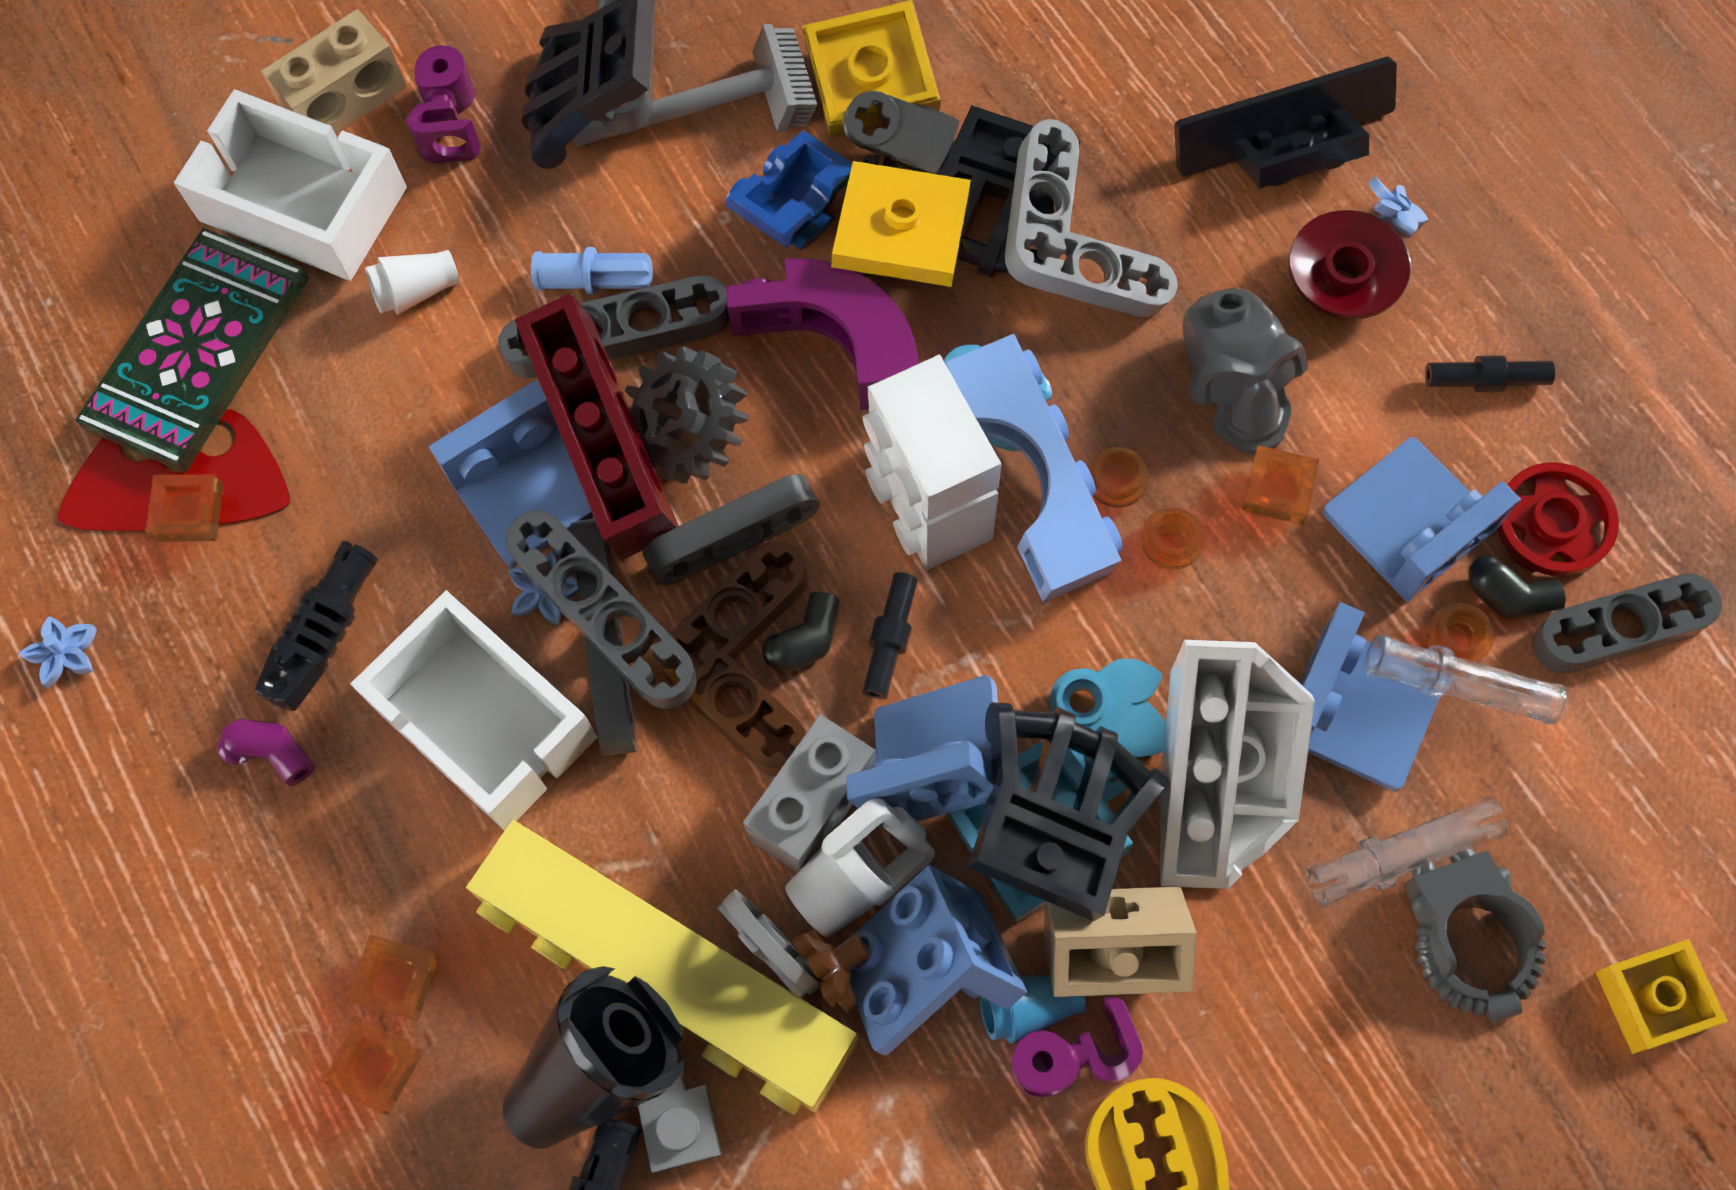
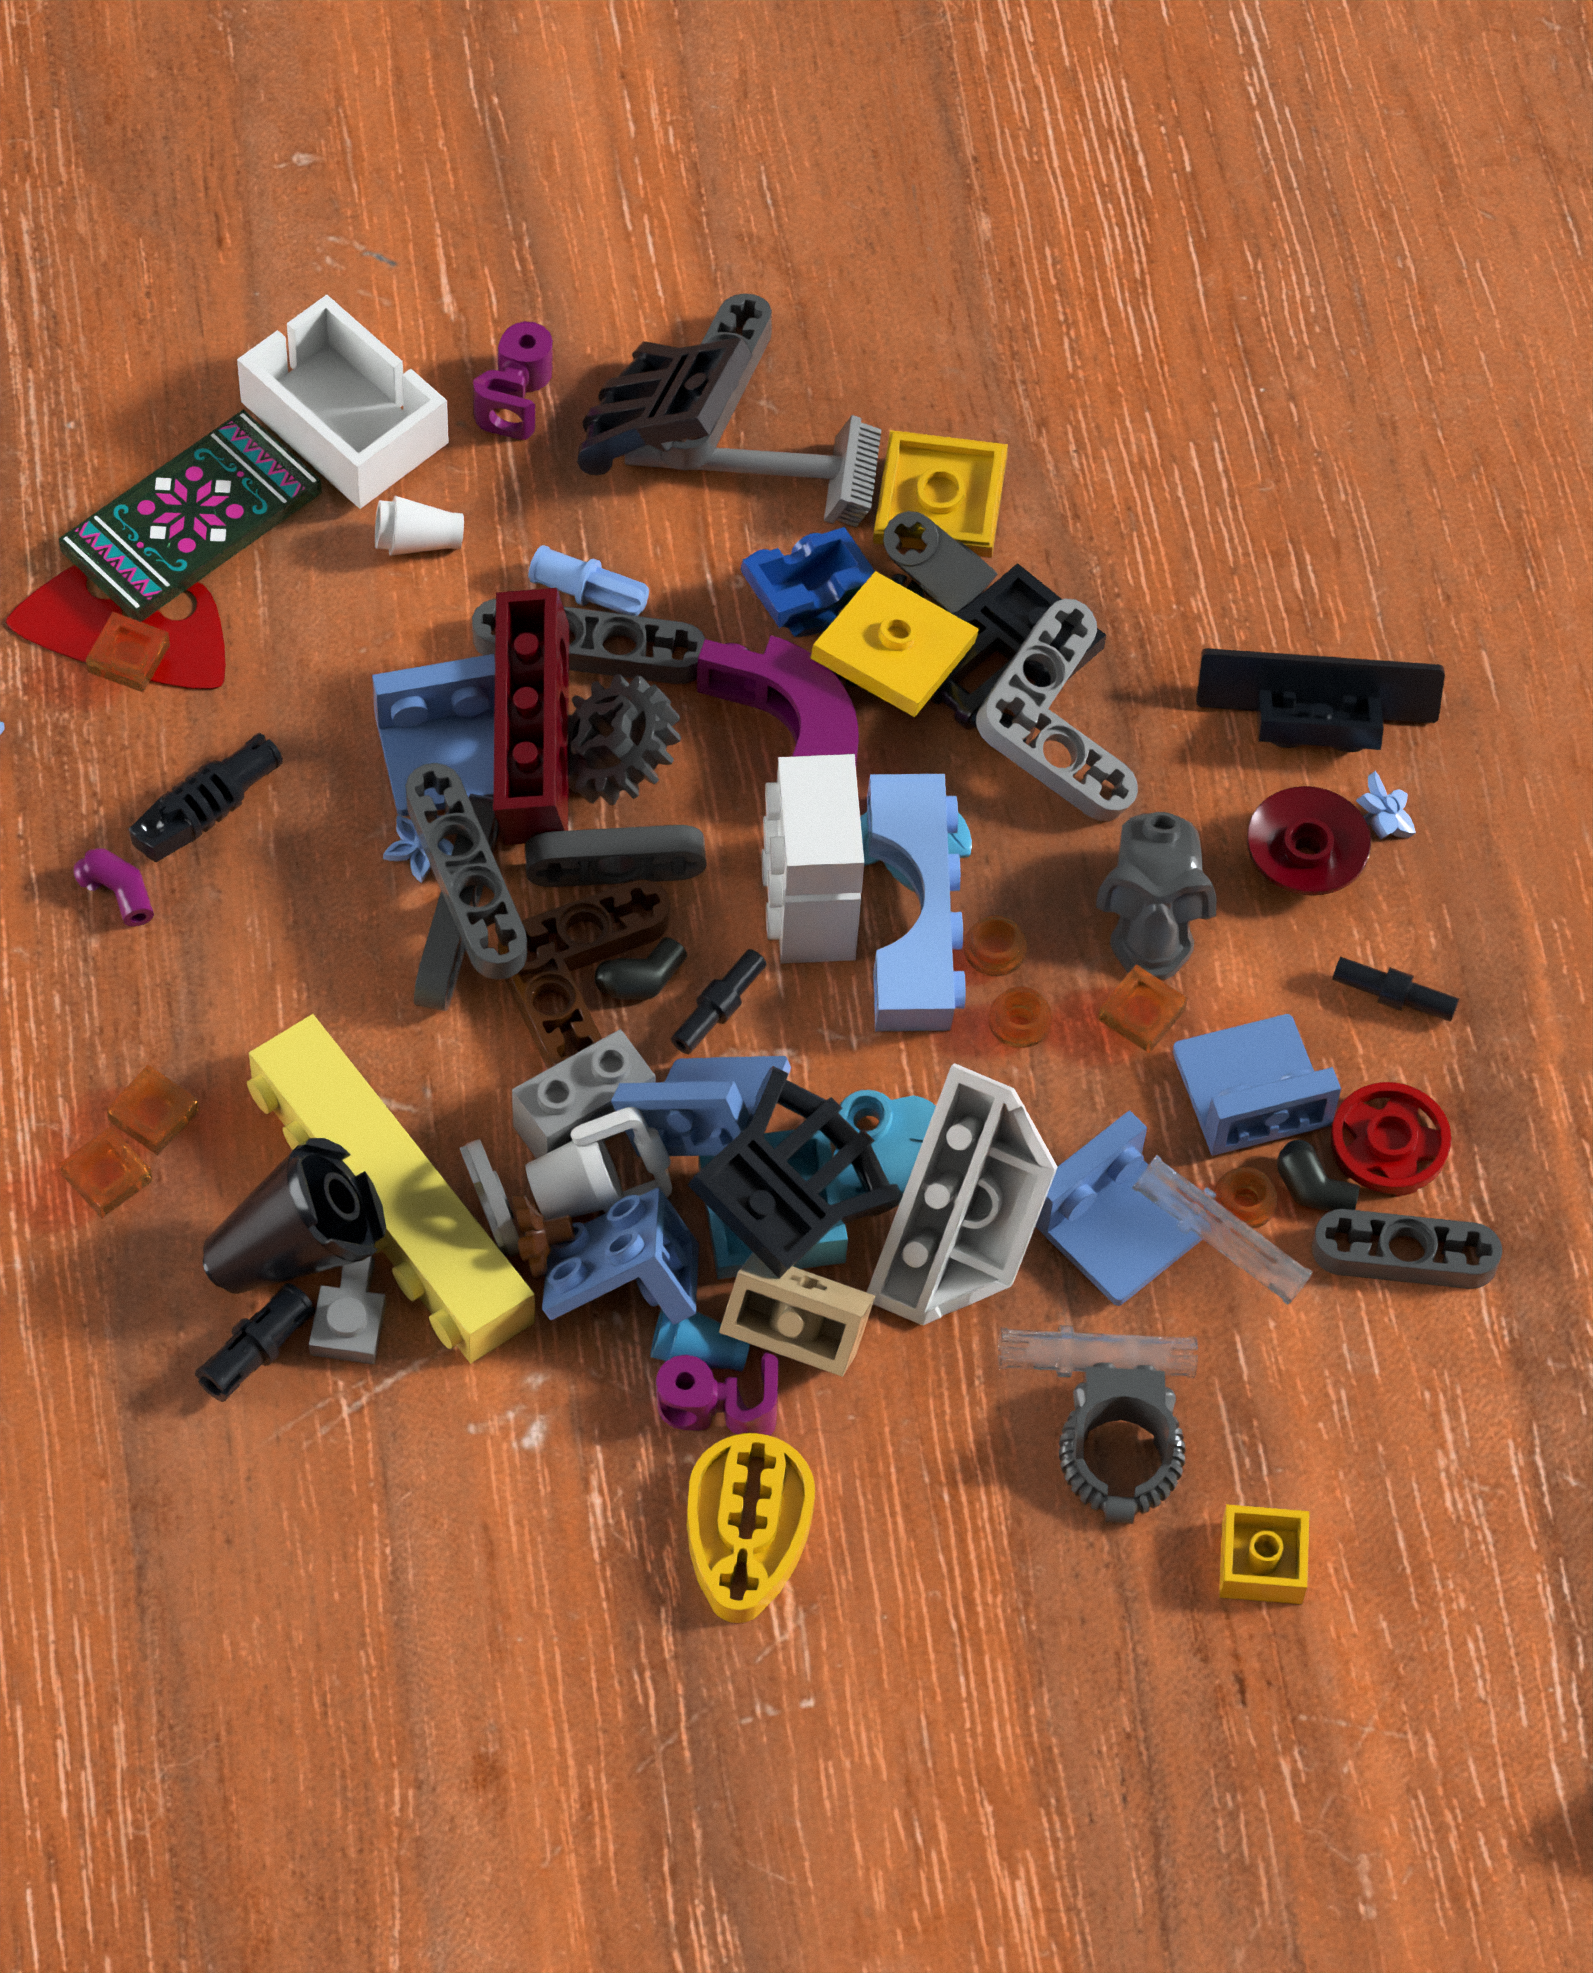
camera: 15 degrees right, 10 degrees down
(337, 73) = (427, 314): tan brick -> none
(475, 709) = (318, 915): white piece -> none

